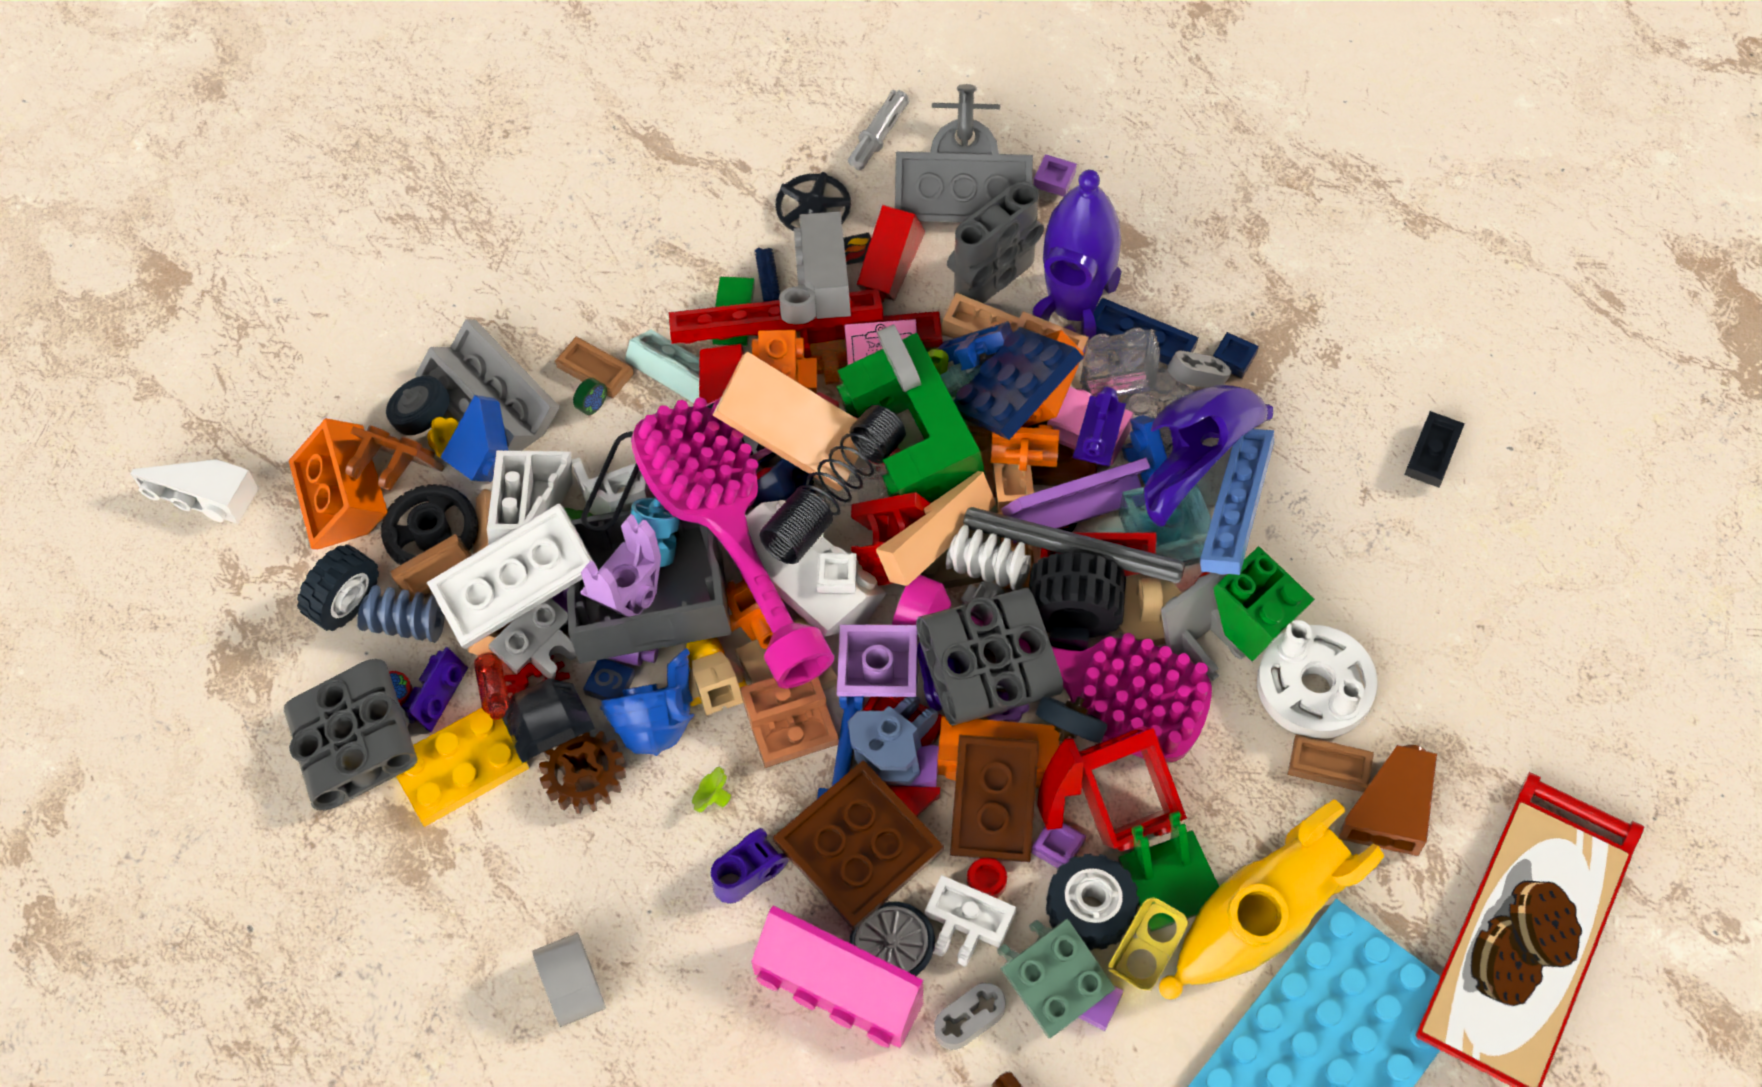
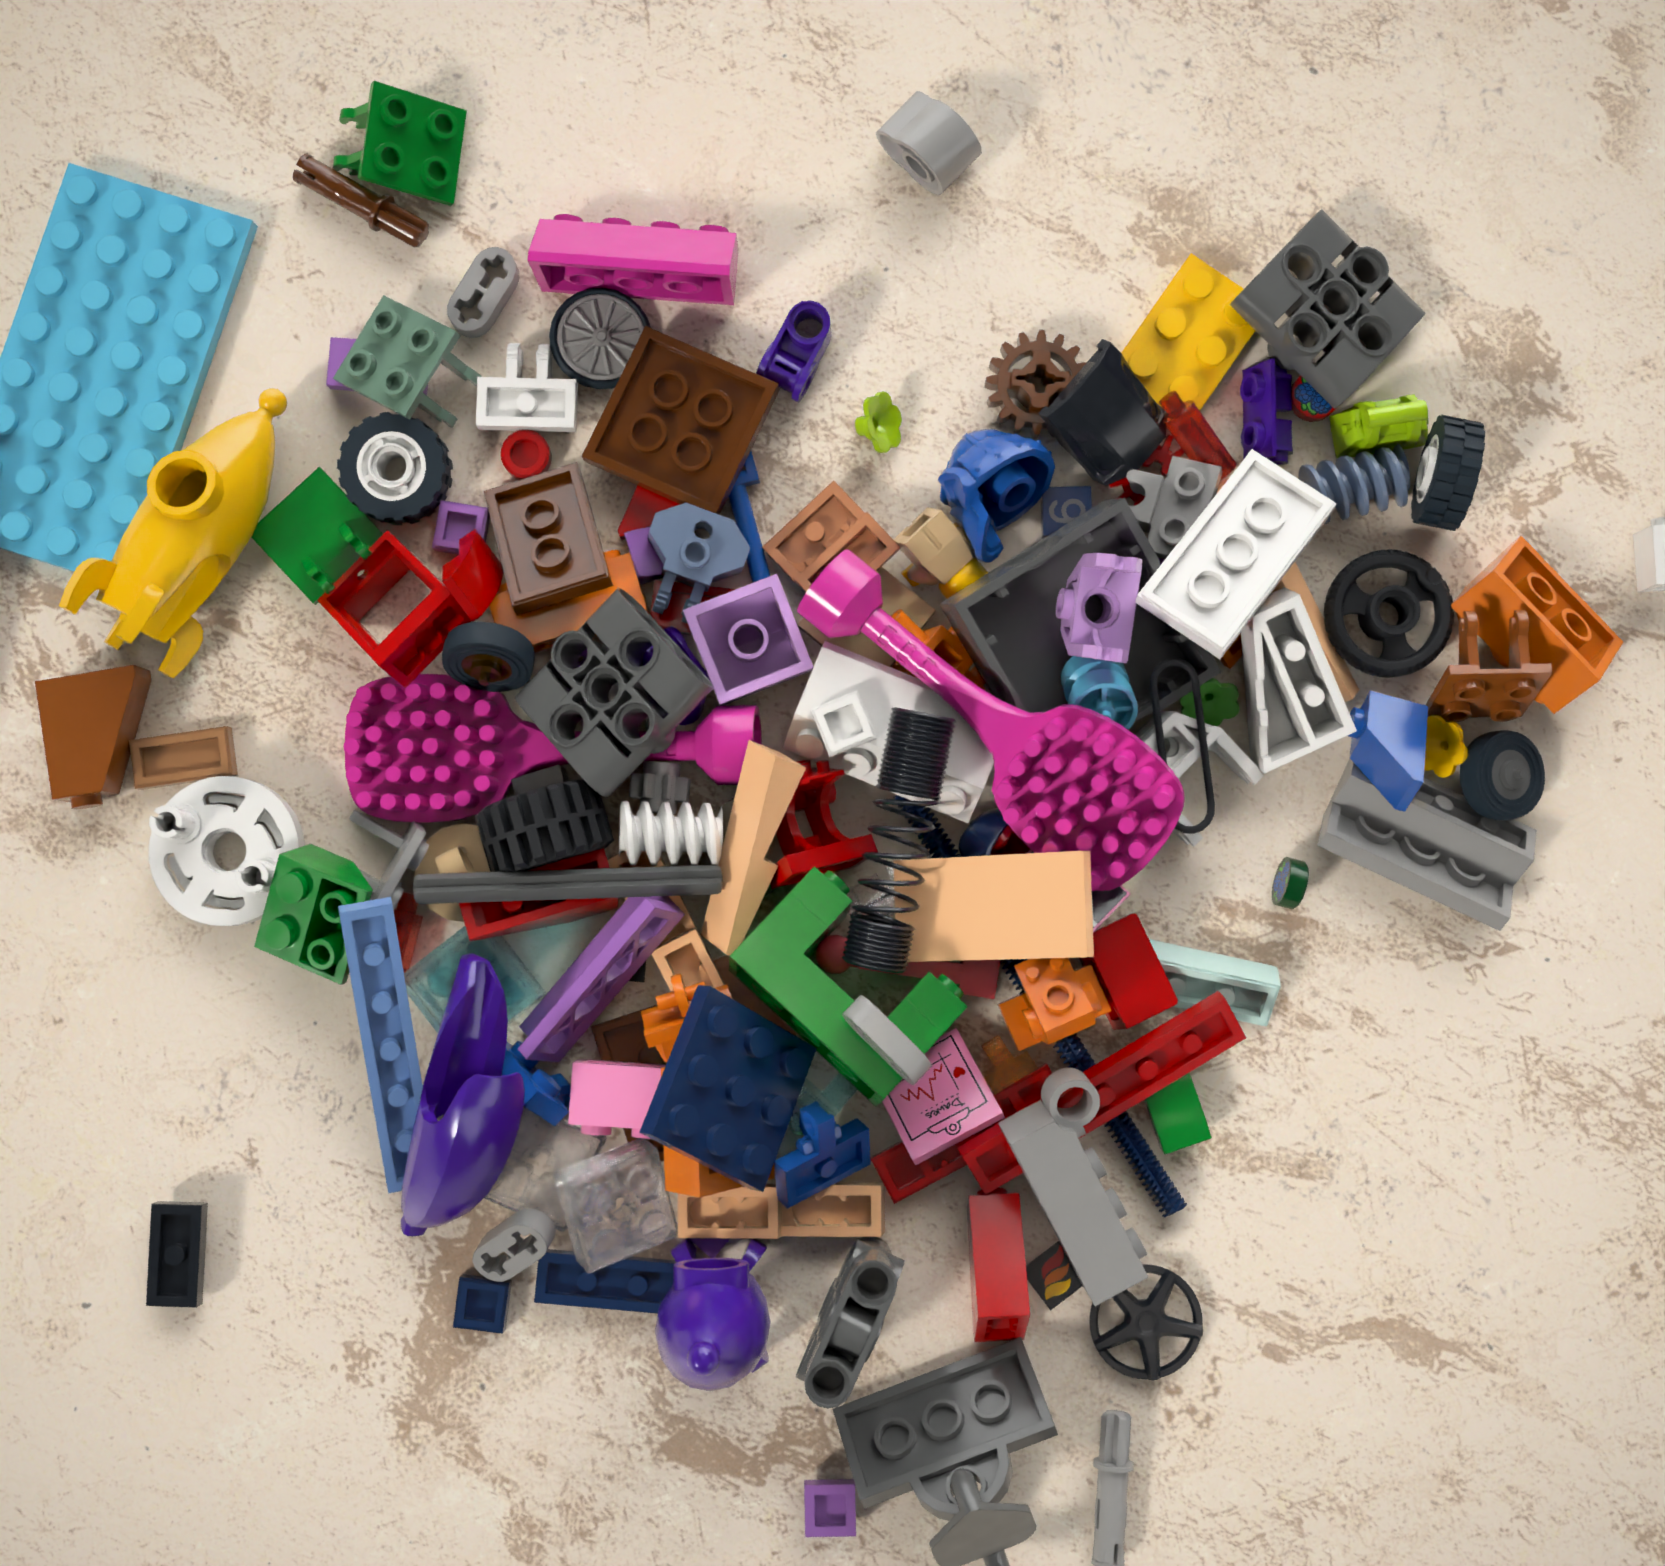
camera: 155 degrees right, 25 degrees up
(352, 644) = (1379, 425): none -> lime piece
(419, 570) = (1350, 555): medium nougat tile -> none
(587, 361) = (1310, 937): medium nougat tile -> none
(939, 359) = (860, 1112): lime rock -> none
(1100, 428) = (597, 1071): dark purple hinge -> none
(1144, 941) = (299, 402): light yellow piece -> none

